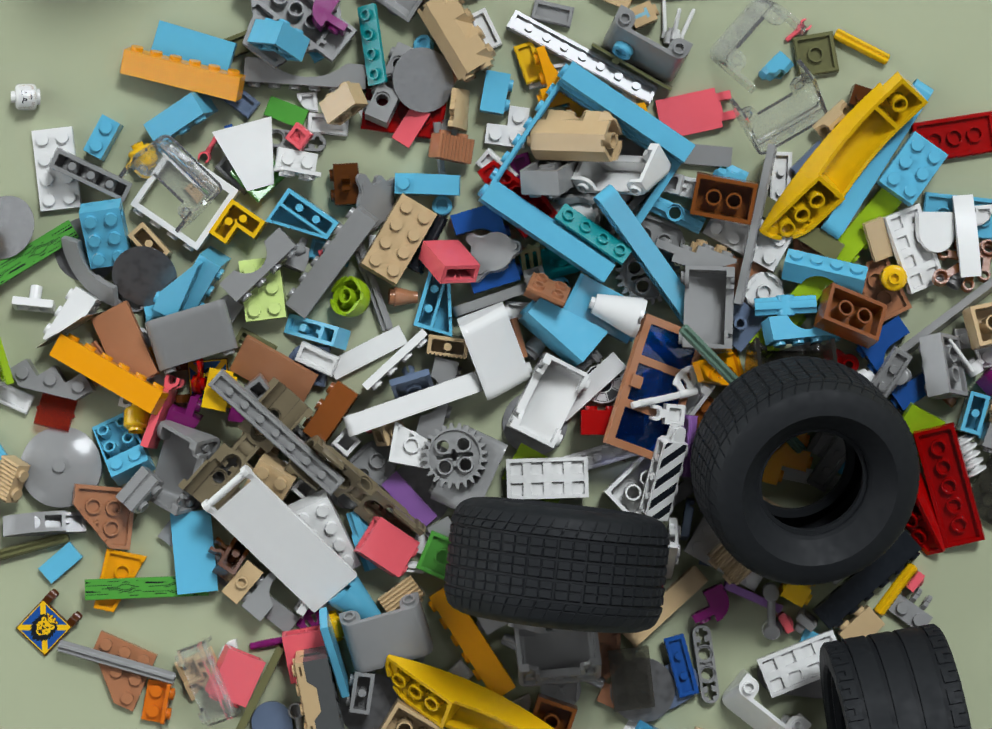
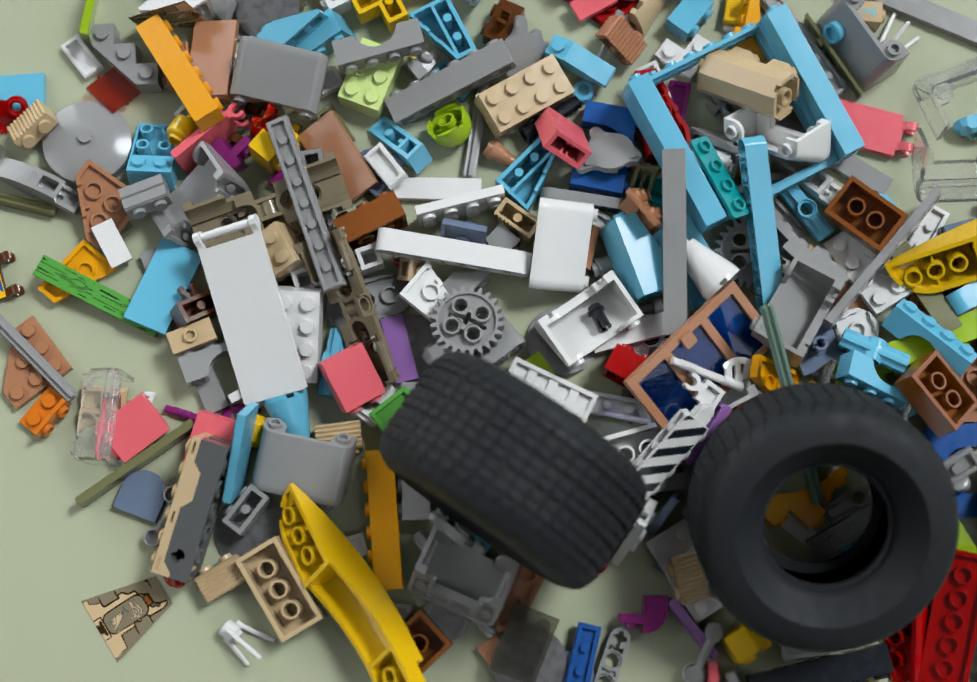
camera: 30 degrees right, 10 degrees down
(60, 562) = (34, 231): medium azure tile -> none
(132, 540) = (111, 243): none -> white tile
(547, 178) = (701, 106): light grey brick -> none
(555, 392) = (600, 319): none -> black pin
(583, 305) = (674, 239): none -> light grey tile
(674, 598) = (601, 588): tan beam -> none

